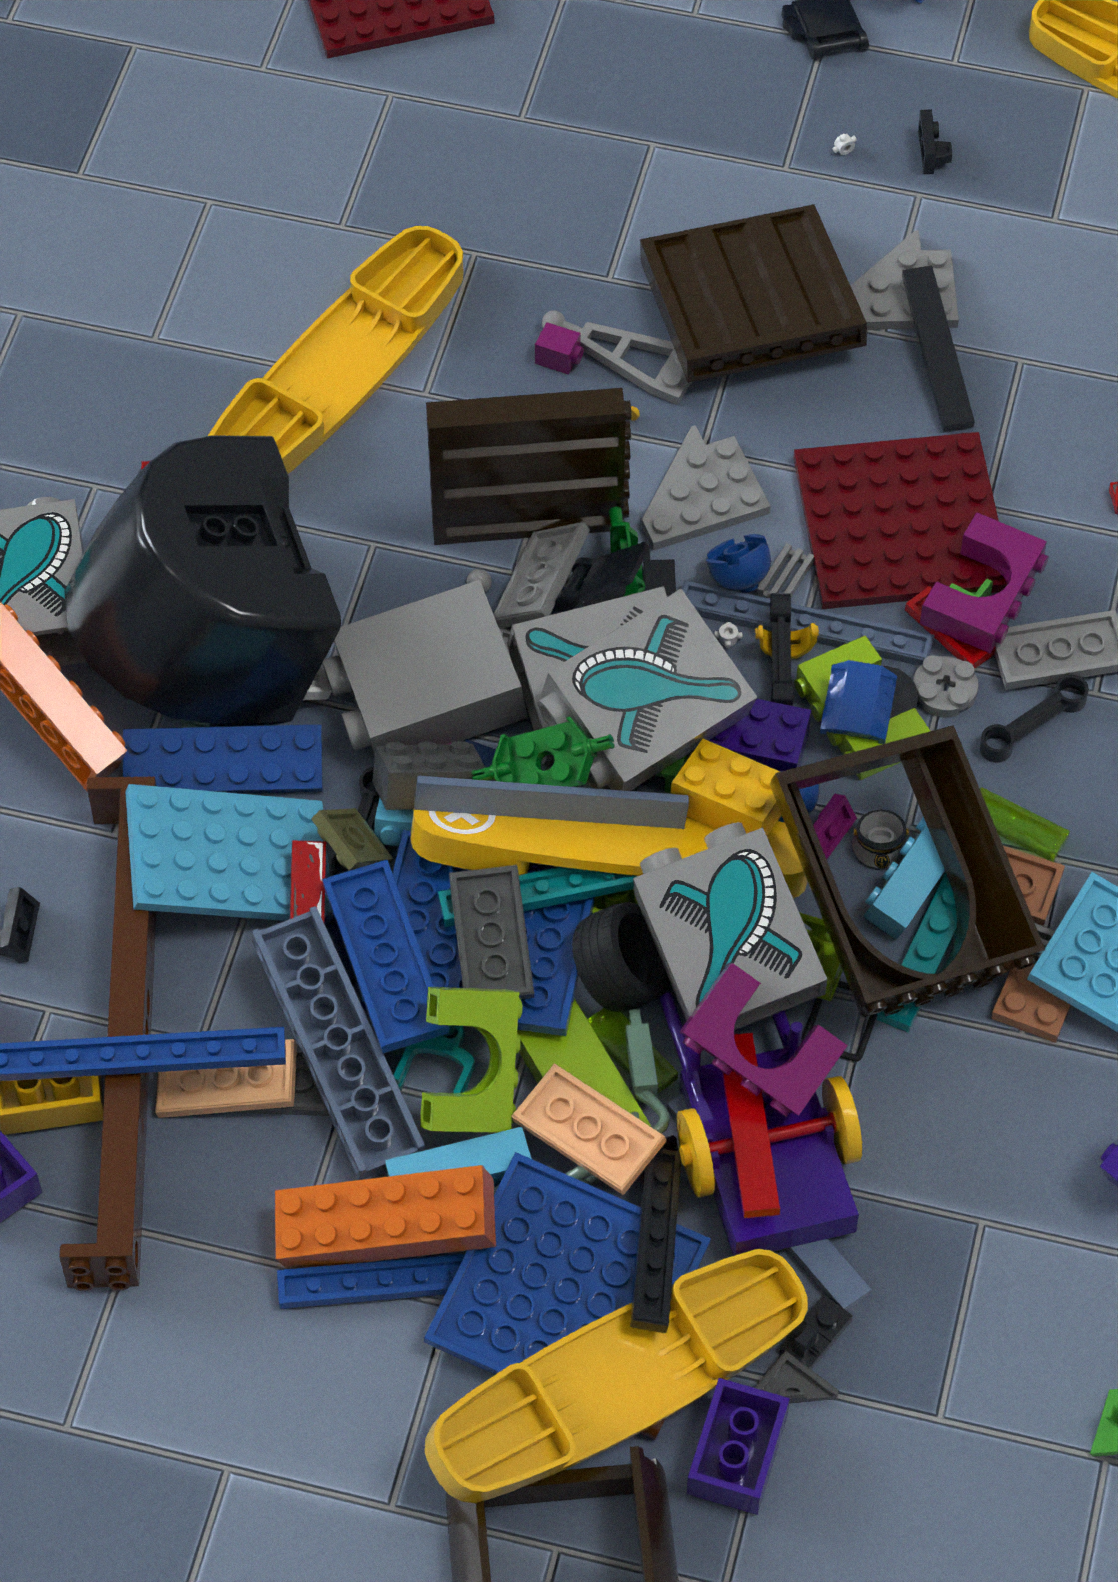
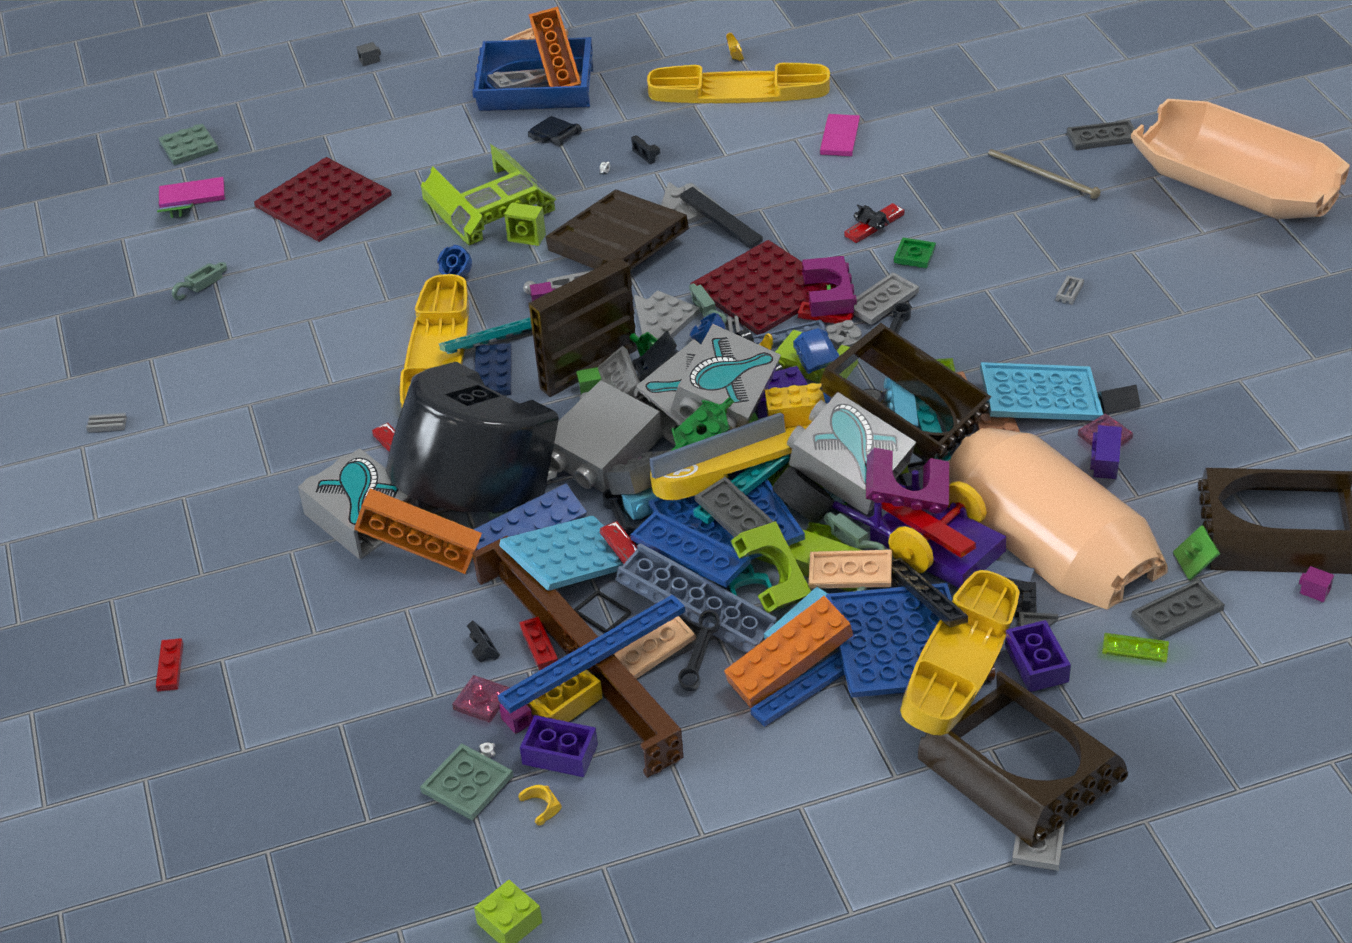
camera: 30 degrees left, 15 degrees down
(87, 976) = (538, 642): none -> red plate
(110, 40) = (200, 279): none -> sand green piece
(189, 980) = (628, 612): none -> black piece
(276, 1132) = (699, 650): none -> black piece
(350, 838) = (621, 515): olive plate -> none
(385, 450) = (495, 366): none -> dark blue plate
(425, 381) = (485, 336): none -> teal plate
(472, 216) = (454, 261): none -> blue cylinder
(500, 552) = (588, 379): none -> bright green panel
(622, 126) = (486, 203): none -> lime piece
(628, 198) = (525, 224): none -> lime brick
(781, 506) = (704, 302): none -> sand green piece
(900, 1522) = (1135, 647): none -> clear neon green plate
(975, 1218) = (1057, 516): none -> light nougat cylinder
(1024, 1497) = (1177, 610): none -> dark grey tile

